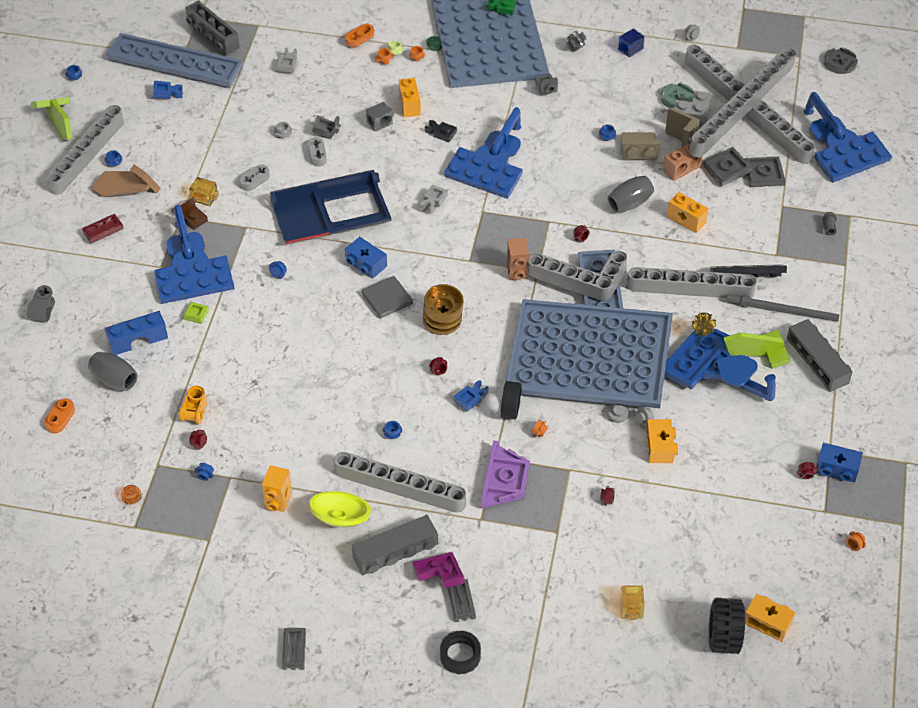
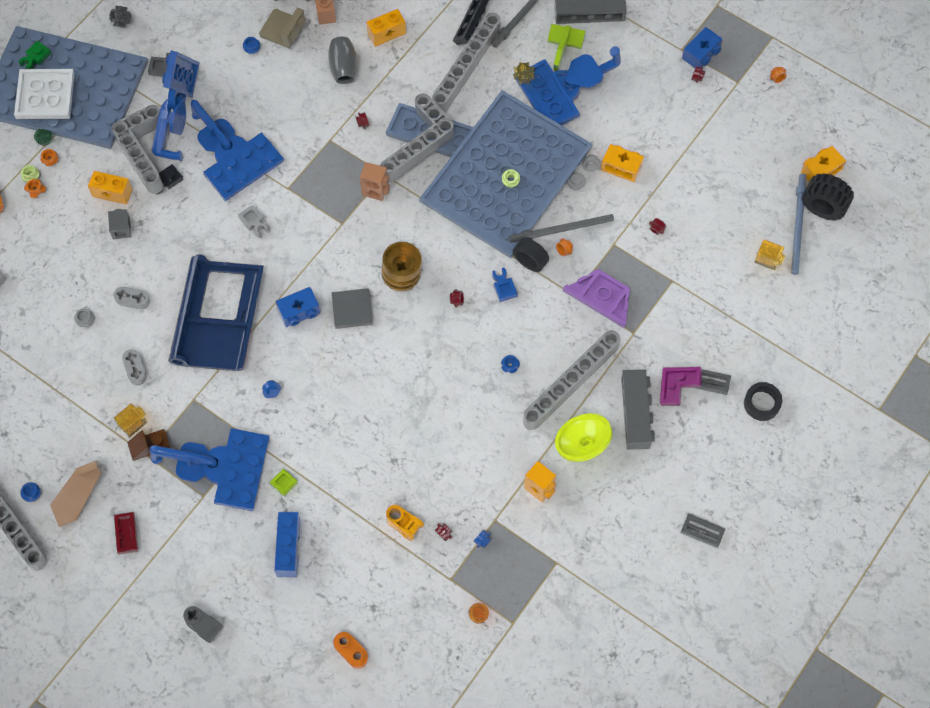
camera: 65 degrees left, 15 degrees up
(112, 371) = (327, 581): dark grey piece -> none
(326, 127) = (105, 276): dark grey bracket -> none
(455, 93) = (126, 134): none -> light grey beam
(469, 23) = (44, 94): none -> white plate
(526, 87) = (181, 81): none -> blue plate
(530, 390) = (560, 228): none -> dark grey bar
(581, 349) = (510, 174): none -> yellowish green plate
(672, 623) = (798, 224): none -> sand blue bar

